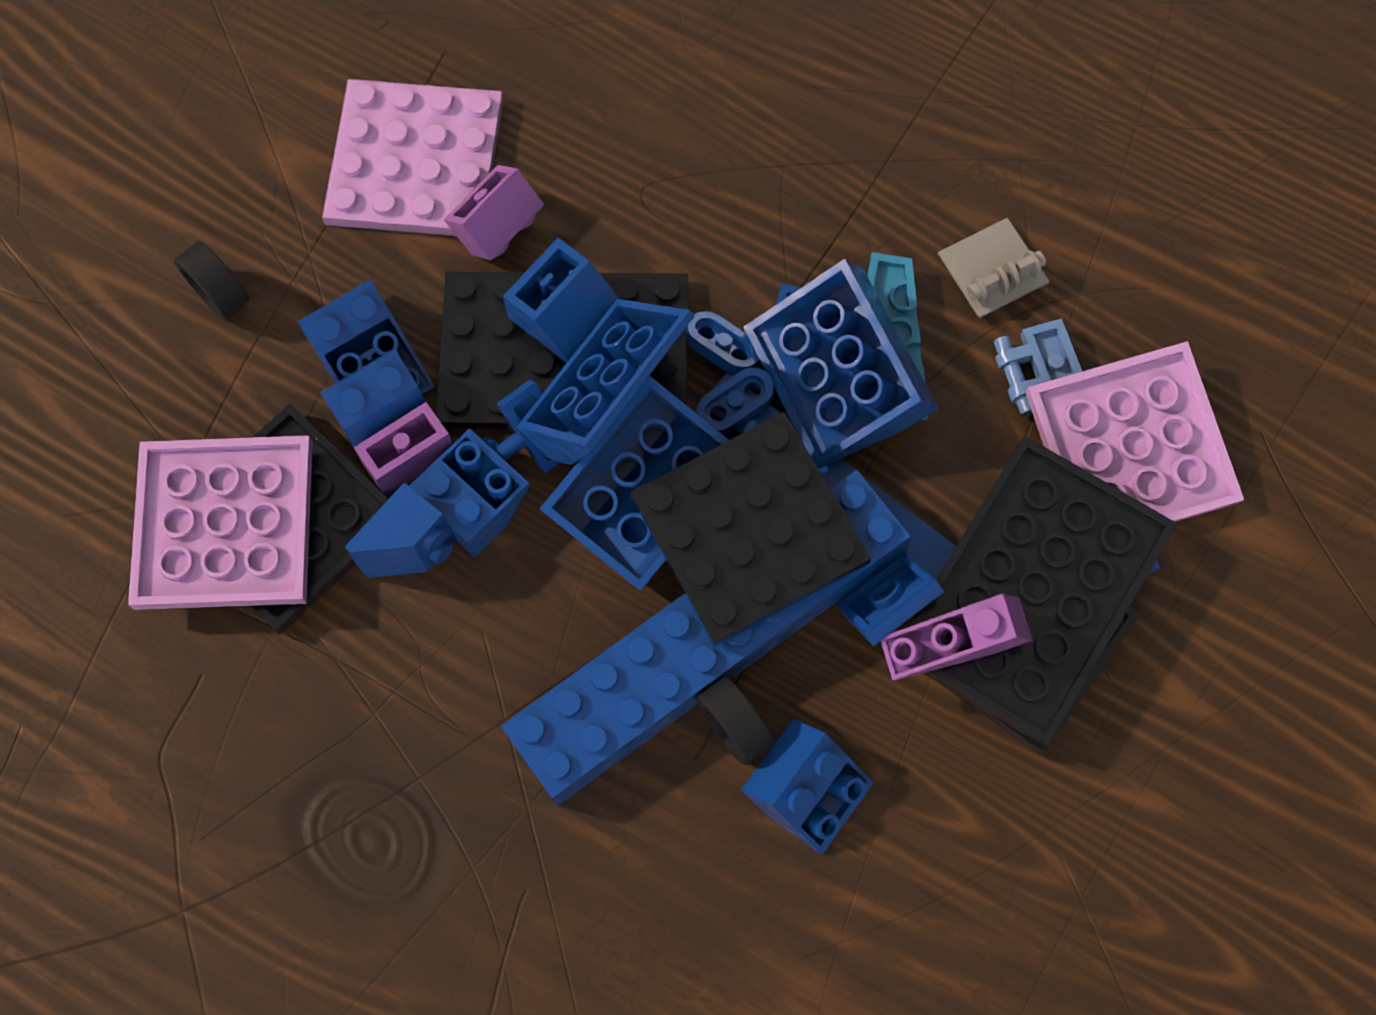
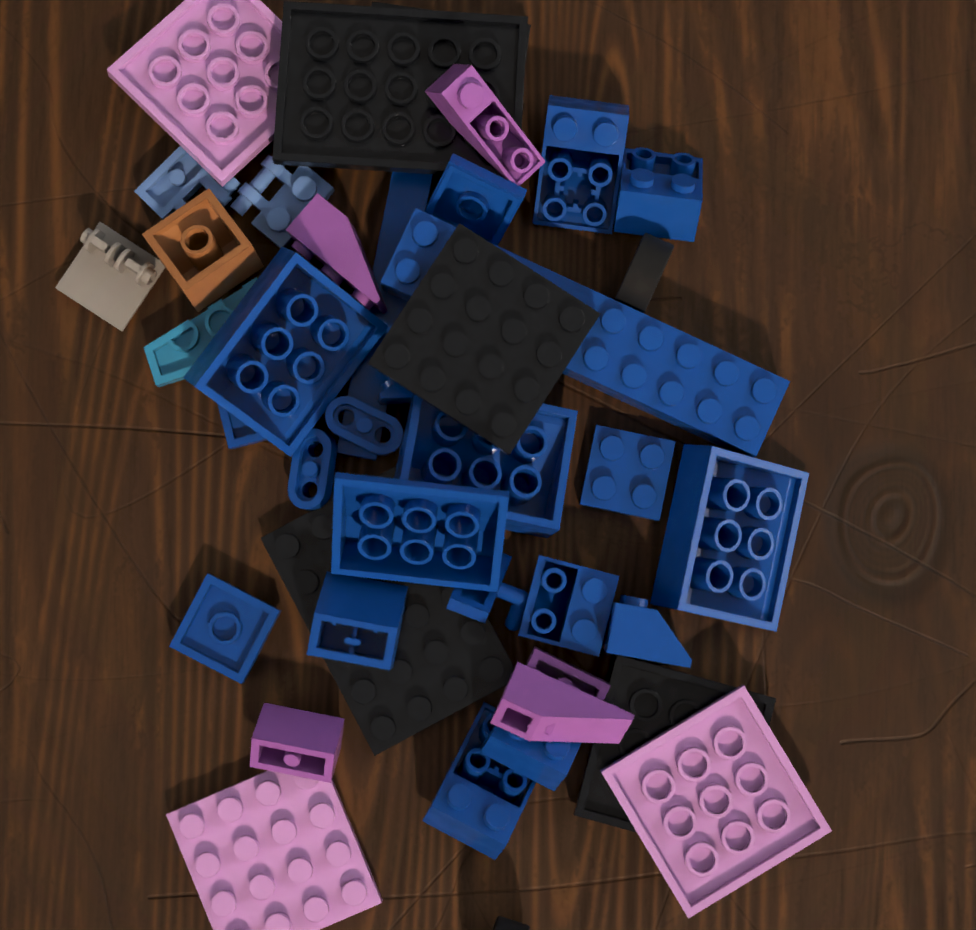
camera: 120 degrees left, 15 degrees up
(386, 404) = (553, 711): none -> medium lavender slope
(442, 671) = (729, 537): none -> blue slope
(560, 615) = (627, 473): none -> blue plate
(627, 209) = (225, 628): none -> blue plate
(883, 728) = (582, 164): none -> blue slope
(915, 463) = (331, 239): none -> medium lavender slope
(973, 346) = (203, 250): none -> medium nougat slope
(975, 444) = (286, 204): none -> medium blue plate

